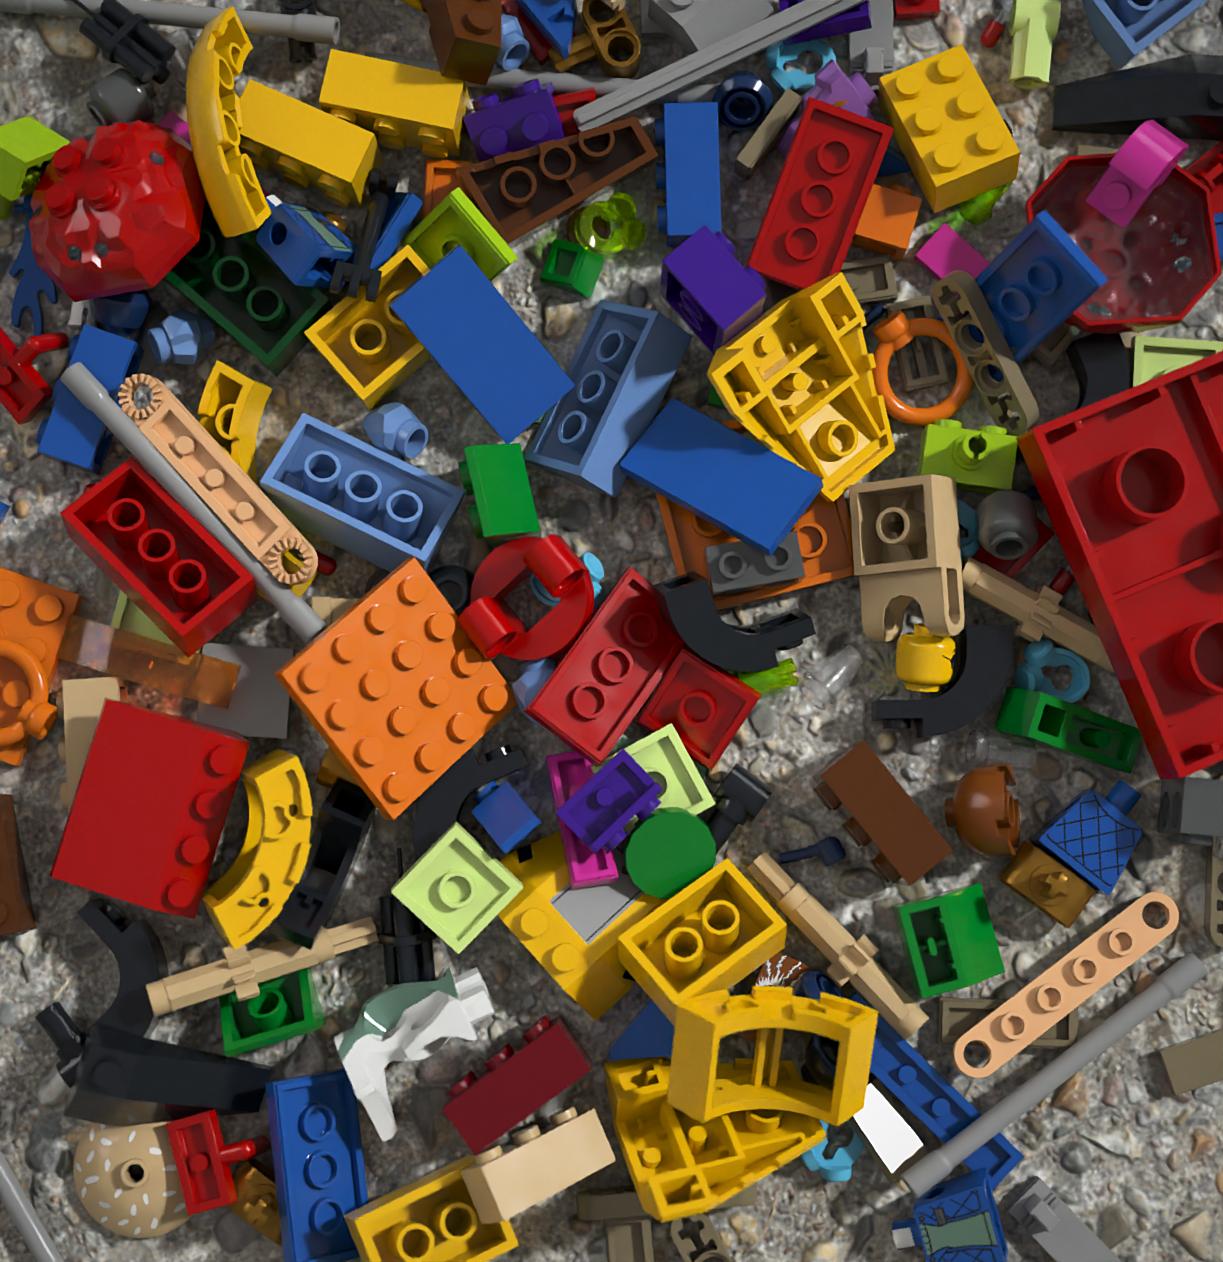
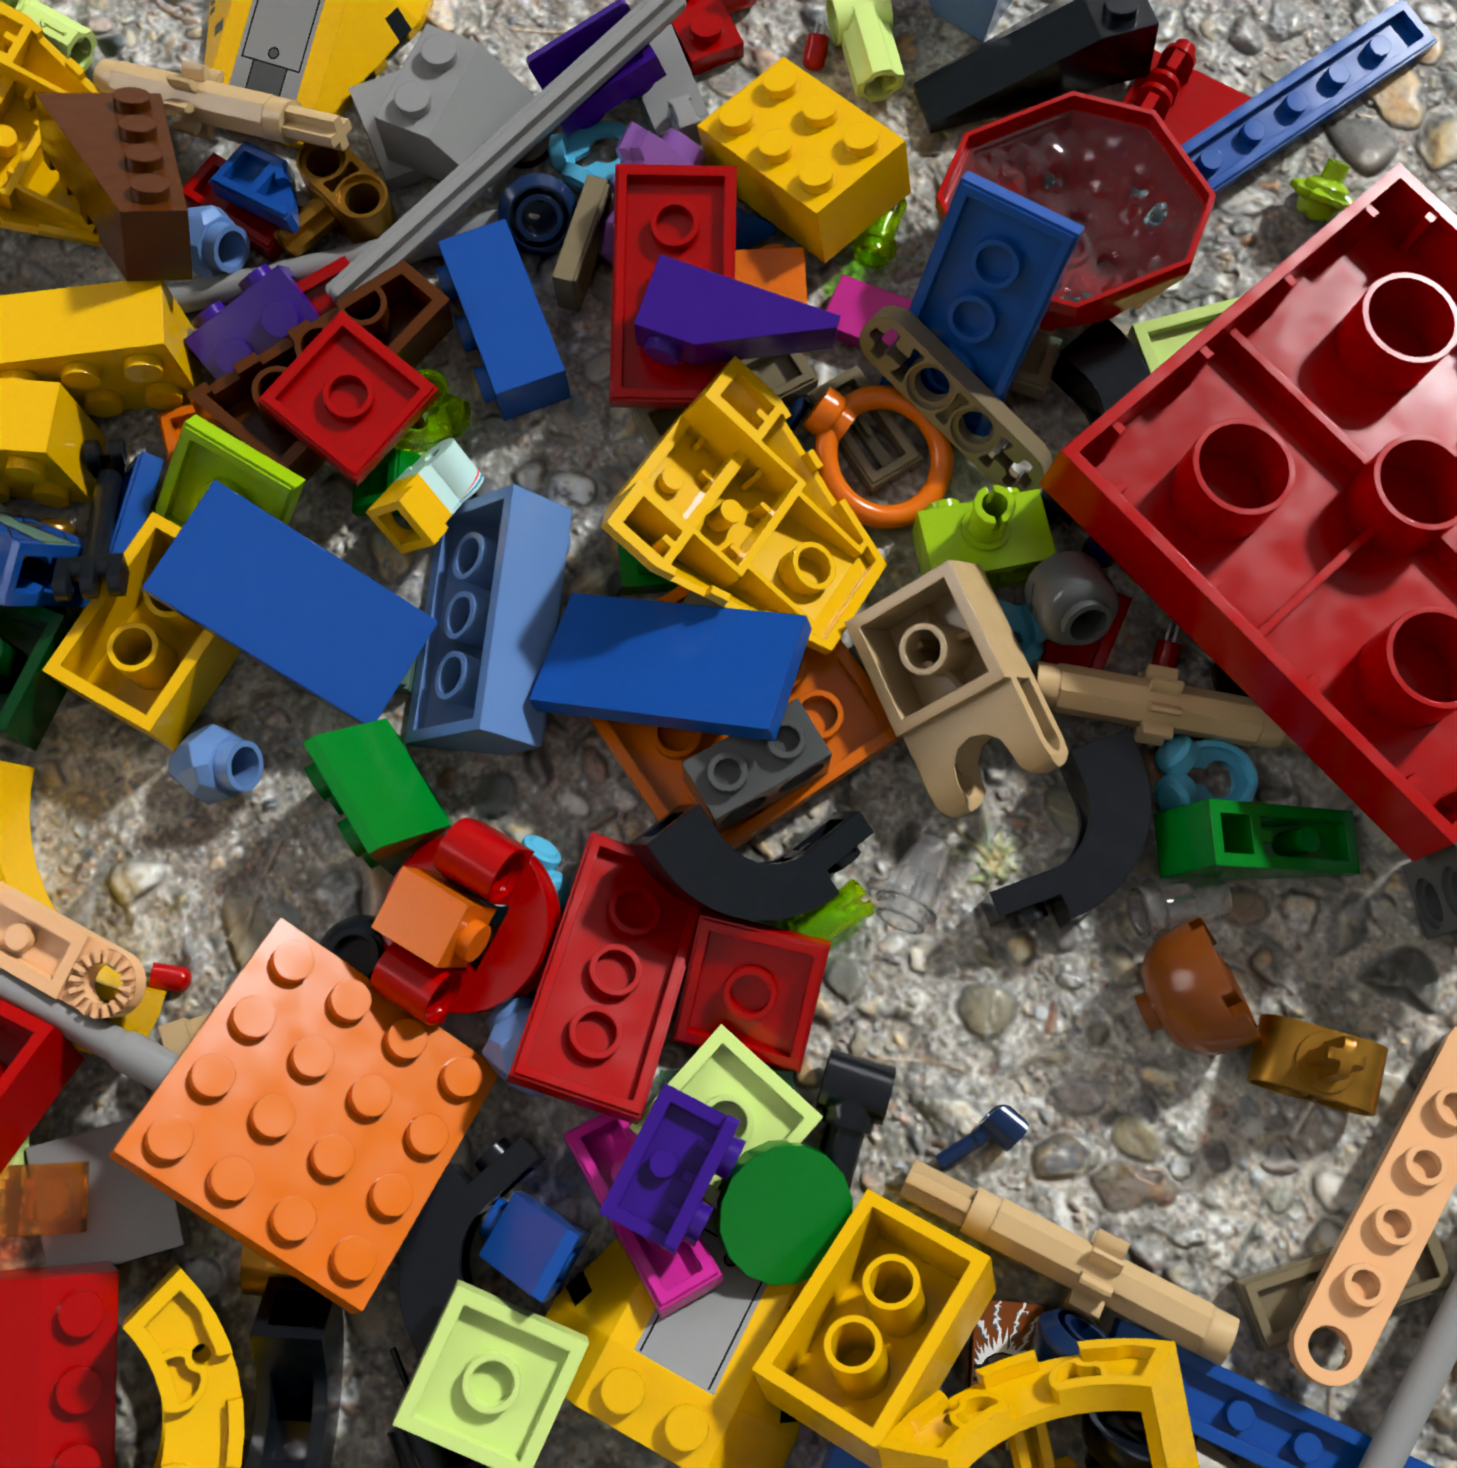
camera: 20 degrees left, 10 degrees down
(360, 496) = (187, 866): medium blue slope -> none
(512, 593) = (435, 918): none -> orange brick
(566, 208) = (348, 398): none -> red tile
(595, 292) = (426, 497): none -> leg
(711, 288) = (570, 428): dark purple brick -> none
(838, 242) = (713, 318): none -> dark purple slope
(880, 815) = (1060, 1049): reddish brown brick -> none
(924, 660) = (1031, 816): yellow head -> none
(948, 940) = (1217, 1197): green slope -> none
(1093, 836) = (1353, 973): blue torso -> none
(1135, 171) = (1059, 108): dark pink brick -> none

